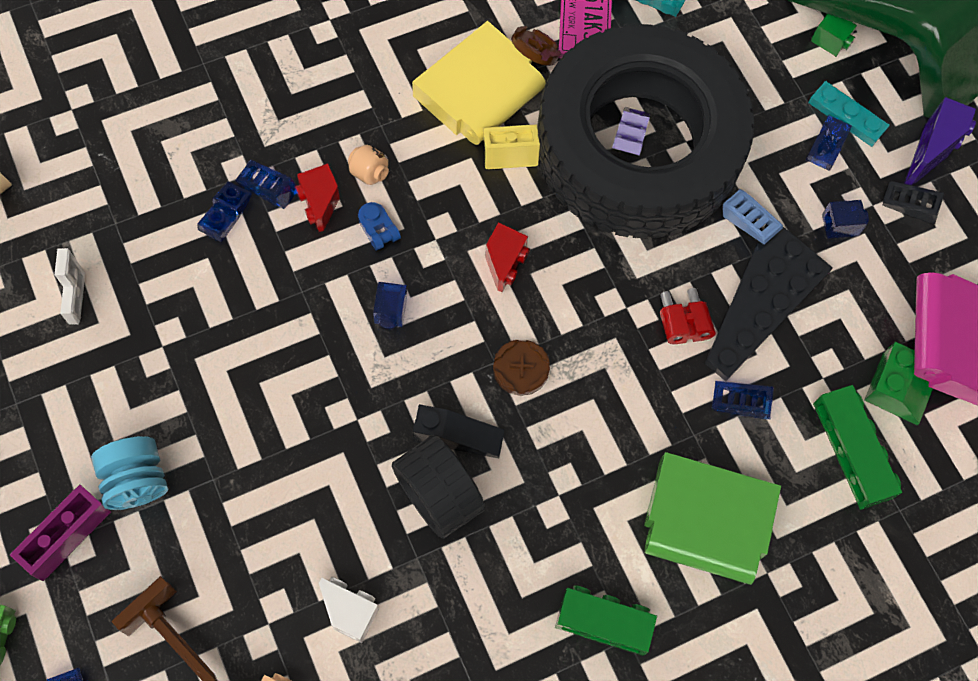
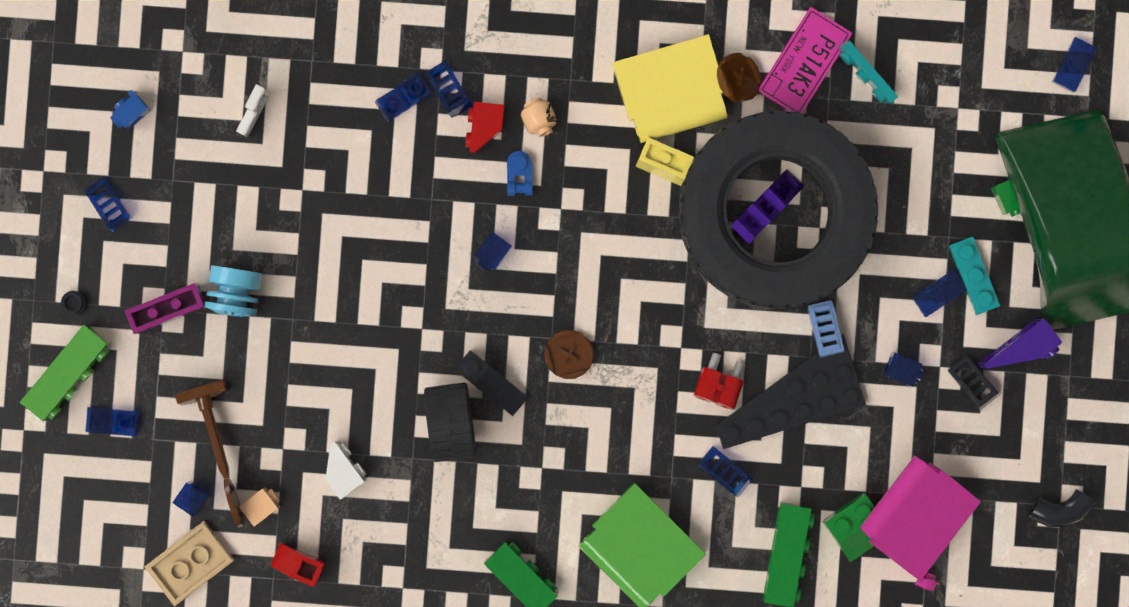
camera: 30 degrees right, 20 degrees up
(503, 253) = (605, 254): red slope -> none

